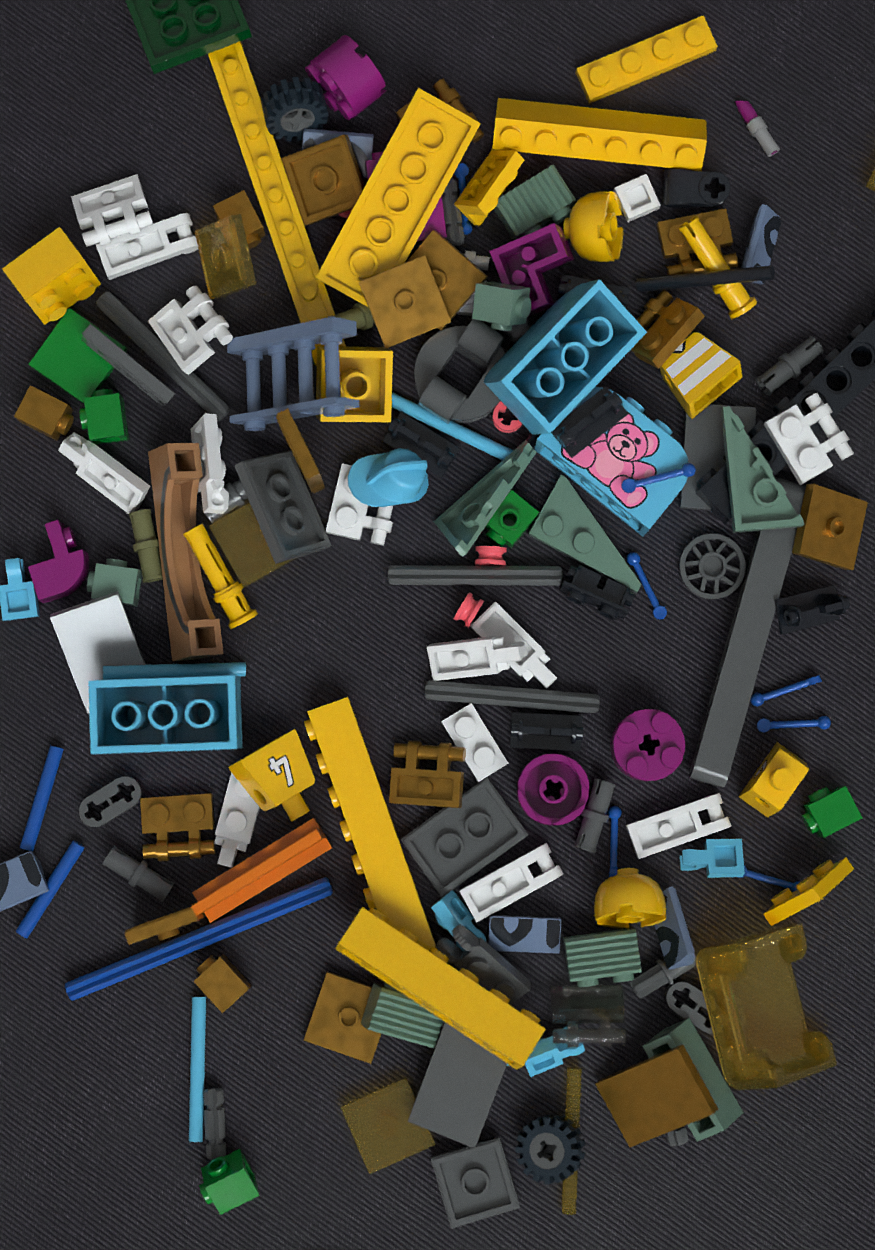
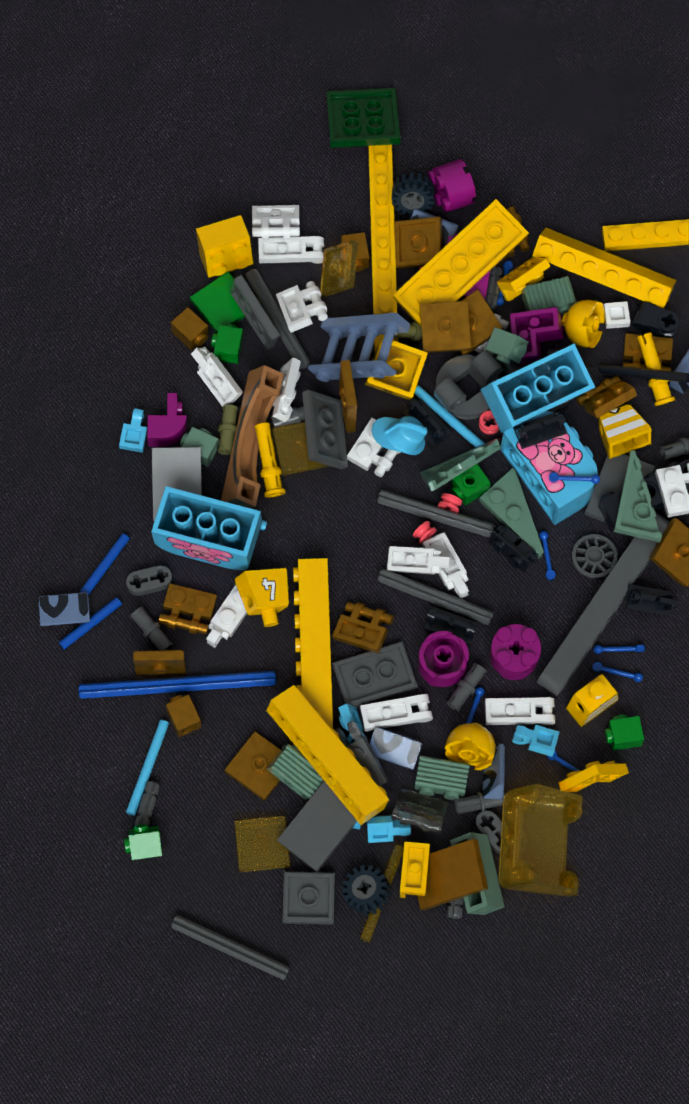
camera: 15 degrees right, 15 degrees down
(261, 870) = (234, 651): orange fence -> none
(481, 749) = (404, 623): white plate -> none
(607, 1102) = (414, 869): none -> yellow panel

